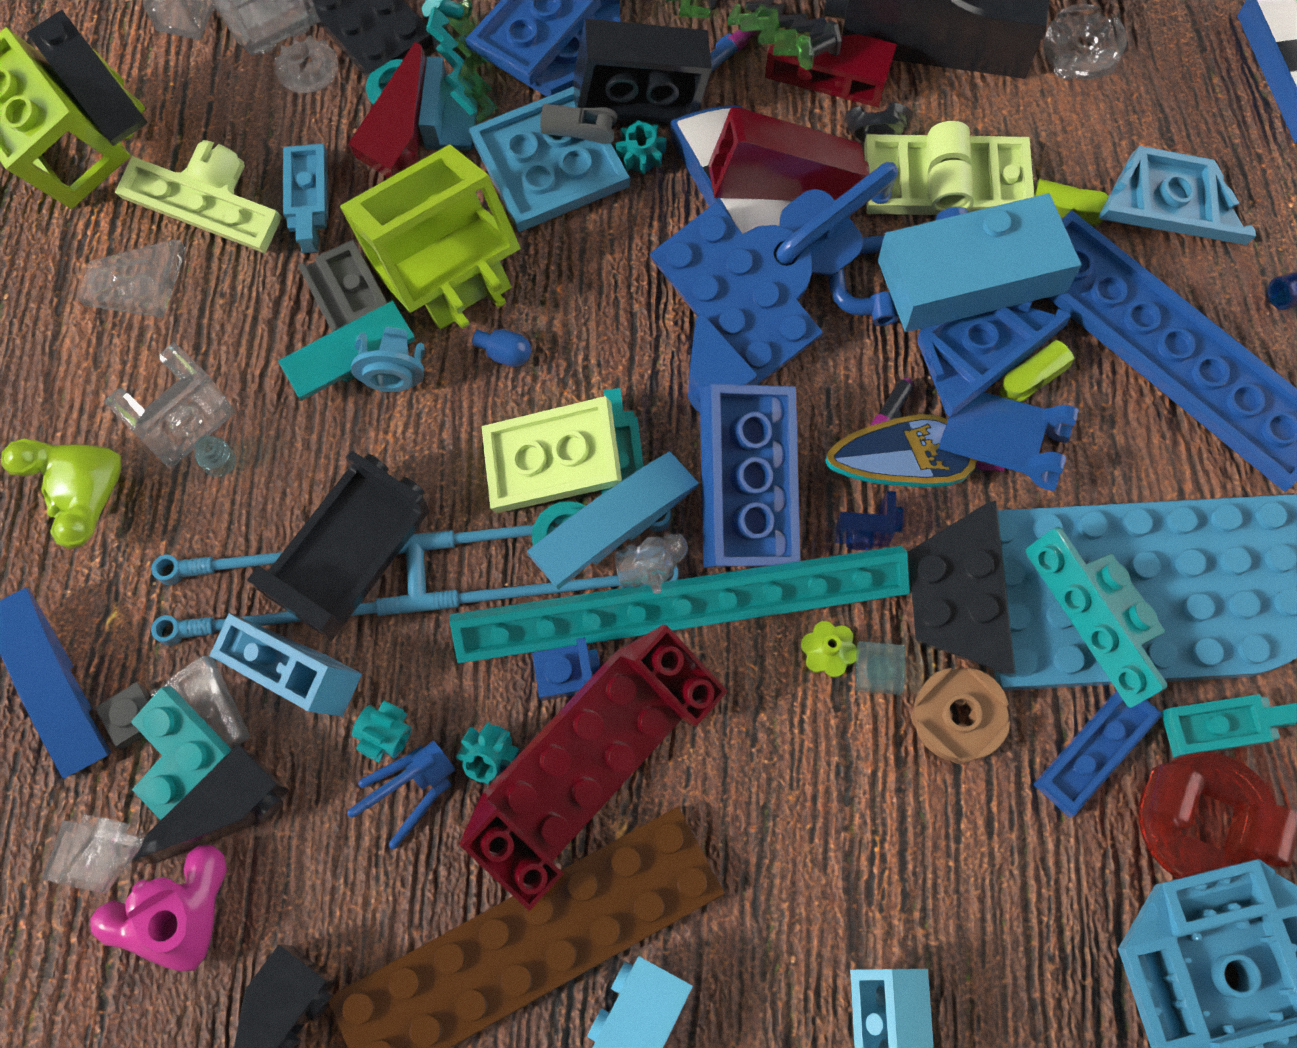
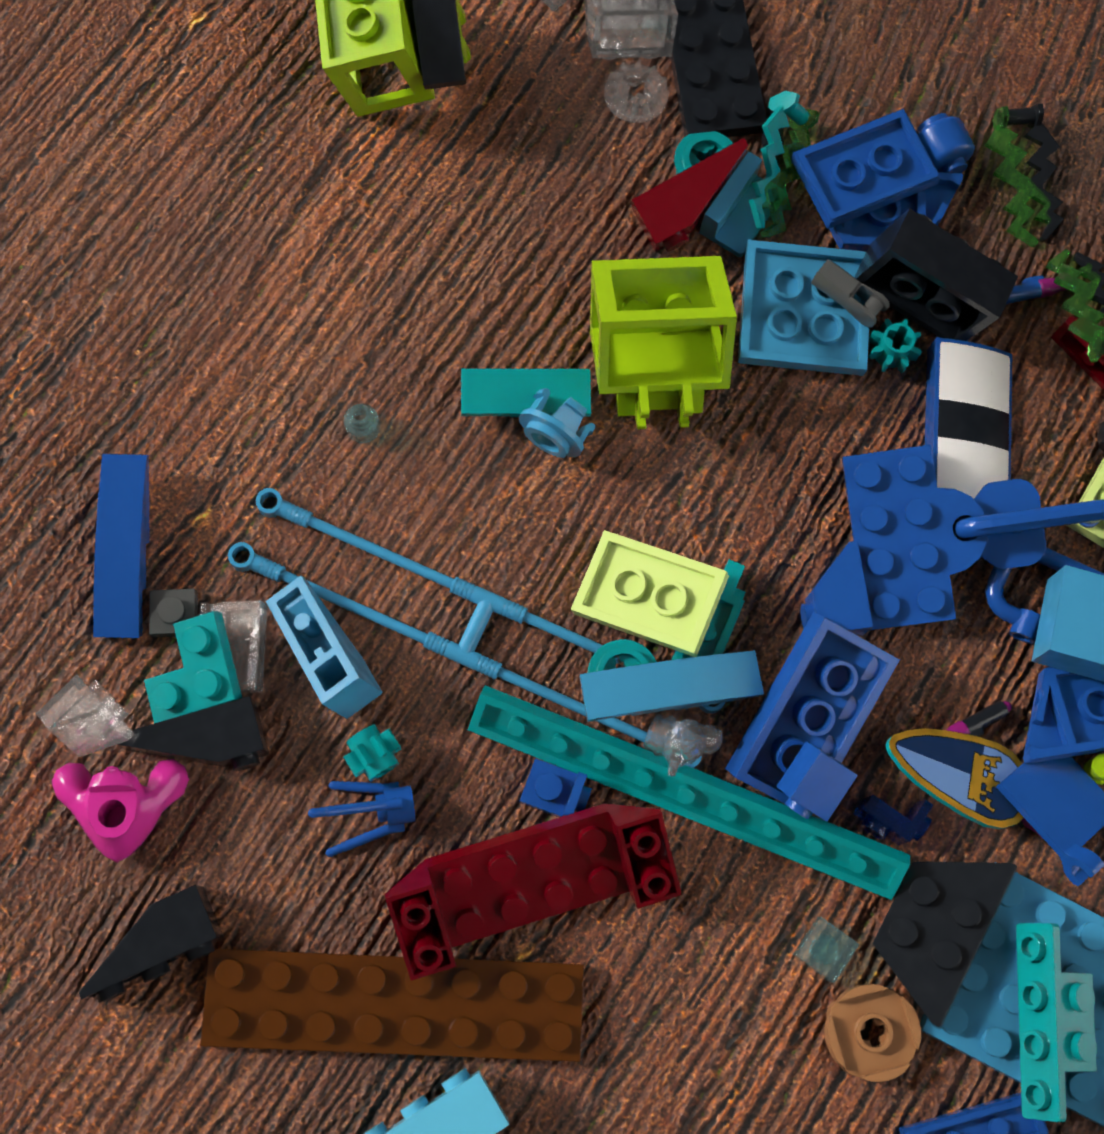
camera: 20 degrees right, 5 degrees up
(74, 483) = (231, 384): lime head -> none
(134, 280) = (377, 217): clear wing -> none
(178, 416) = (351, 375): clear panel -> none
(202, 196) = (477, 172): yellowish green plate -> none
(306, 193) = (569, 219): dark azure hinge -> none
(342, 285) = (554, 329): dark grey plate -> none
(344, 546) = (429, 571): black panel -> none
(486, 752) = (449, 824): teal gear -> none
(503, 346) = (664, 465): blue cylinder -> none
(781, 159) = (1016, 440): dark red slope -> none
(786, 528) = (815, 782): none -> blue brick
(822, 656) = (781, 907): lime plant -> none

